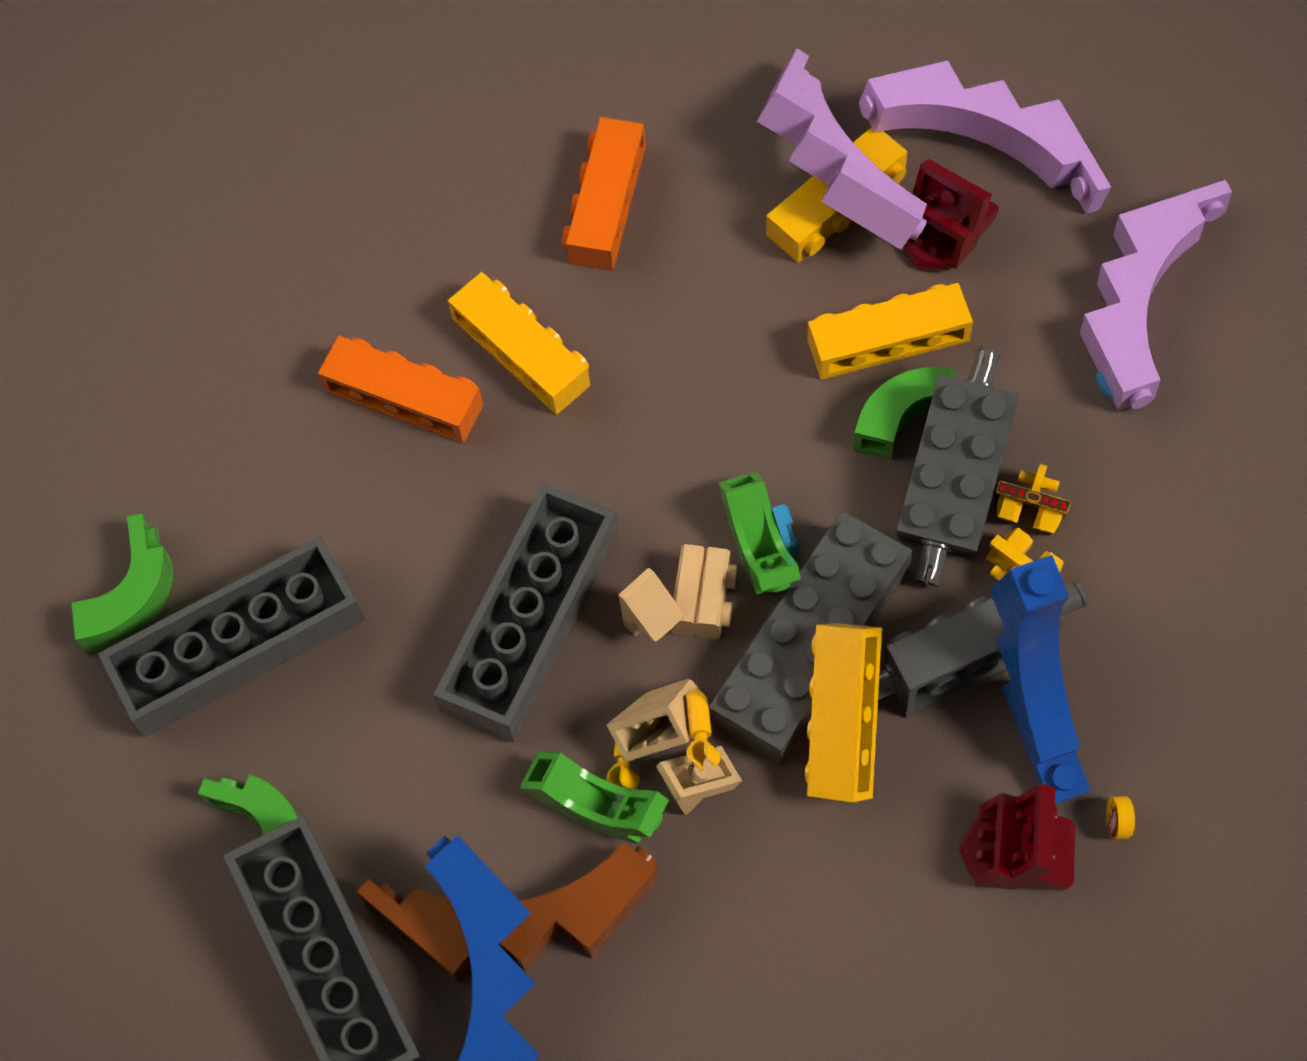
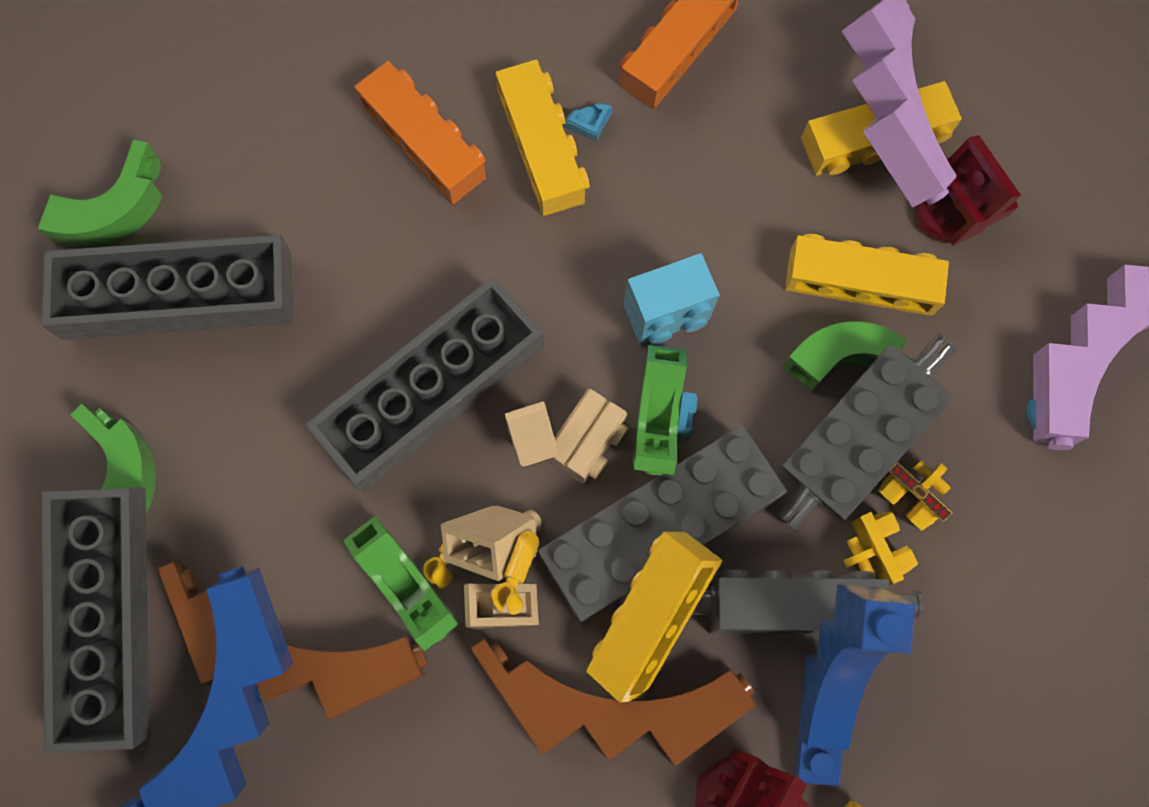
camera: 15 degrees right, 10 degrees up
(557, 307) = (589, 120): none -> dark azure tile
(718, 432) = (670, 300): none -> medium azure brick
(796, 845) = (675, 722): none -> dark orange arch
(1034, 135) = (1083, 156): lavender arch -> none

